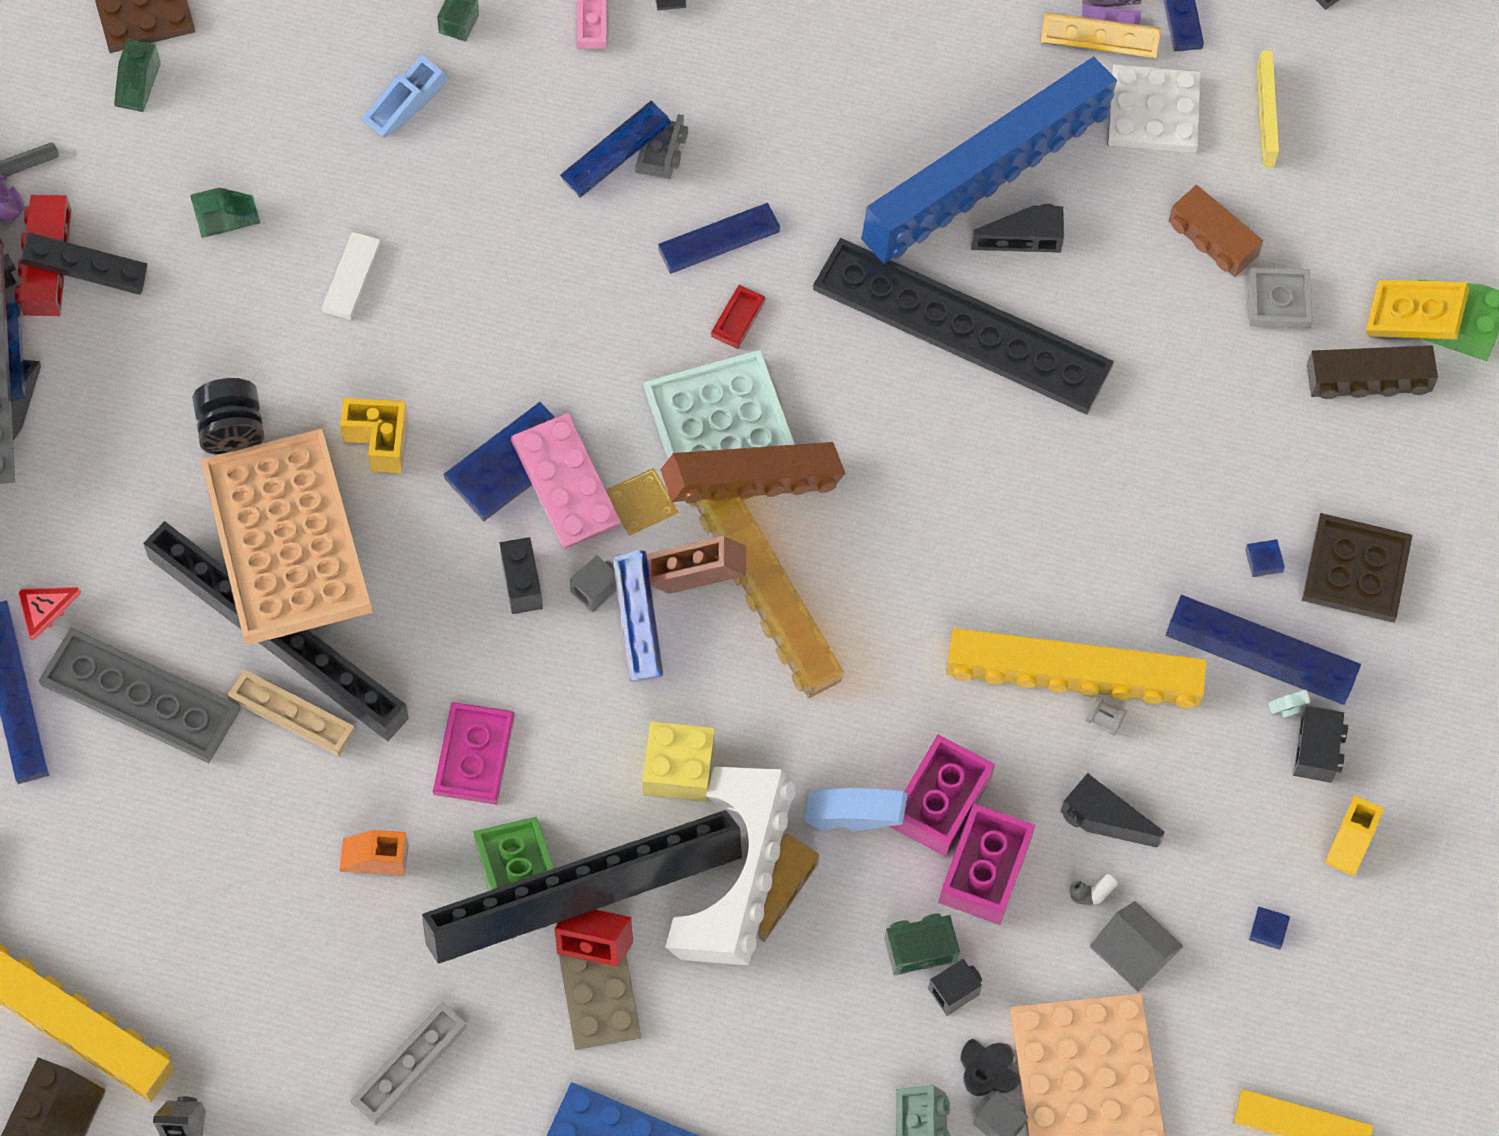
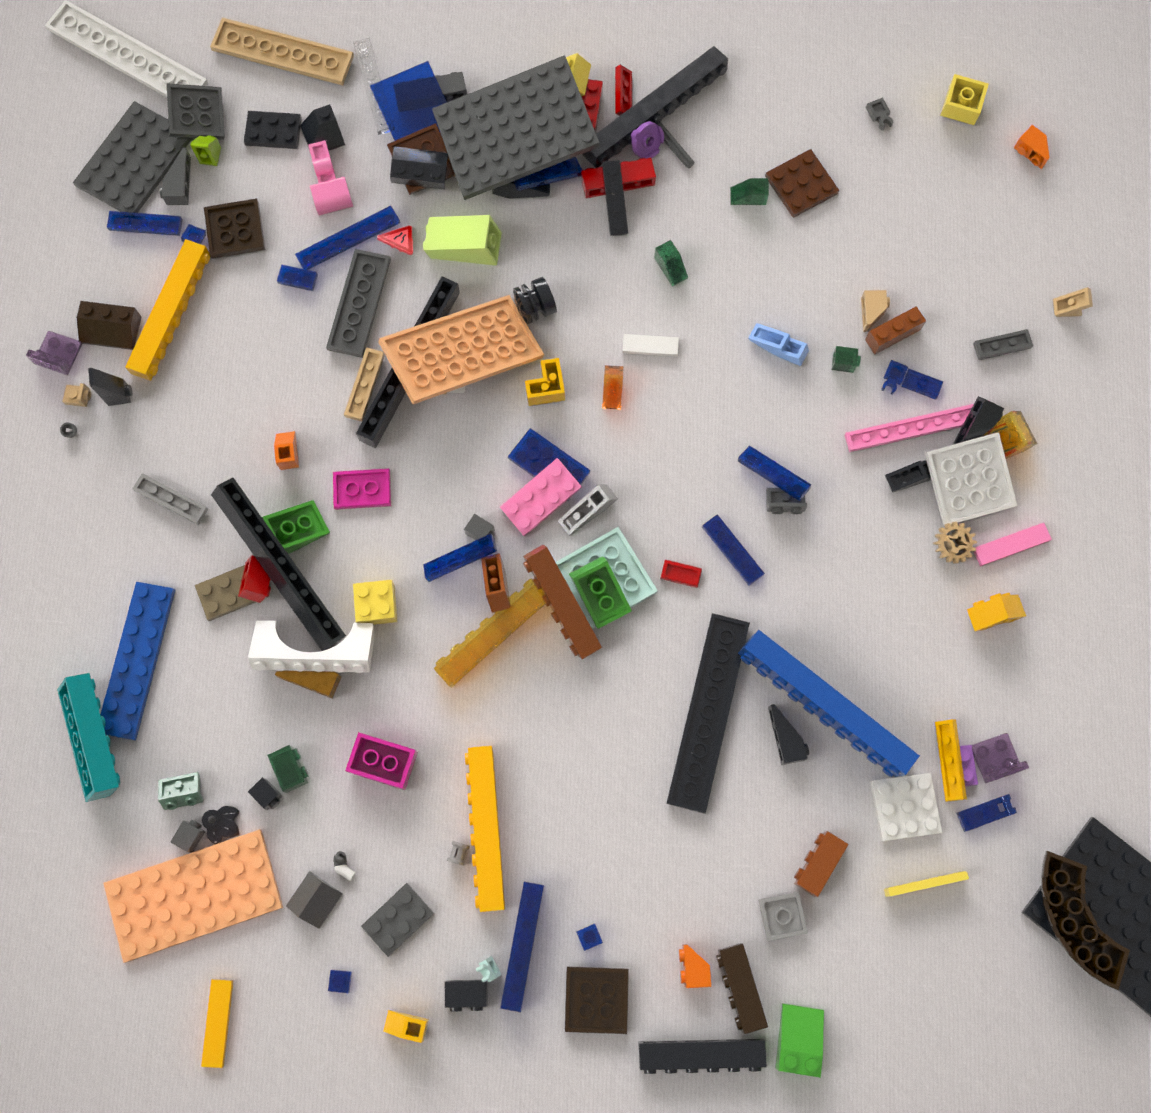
camera: 80 degrees right, 10 degrees up
(59, 786) = (297, 277): none -> clear blue plate
(78, 508) = (463, 239): none -> yellowish green slope
(407, 340) = (612, 387): none -> clear orange slope
(521, 575) = (474, 486): black brick -> none
(602, 420) = (588, 508): none -> light grey slope
(641, 501) = (544, 536): clear yellow sticker -> none
(744, 419) = (600, 592): none -> bright green slope
(855, 808) = (360, 711): light blue slope -> none
(986, 864) = (342, 797): dark pink brick -> none
(1106, 814) = (393, 861): black slope -> none
(1192, 824) = (397, 919): none -> dark grey plate
(1334, 426) = (696, 969): none -> orange slope
(1417, 309) = (794, 1012): yellow plate -> none
(1456, 445) = (702, 1055): none -> black brick

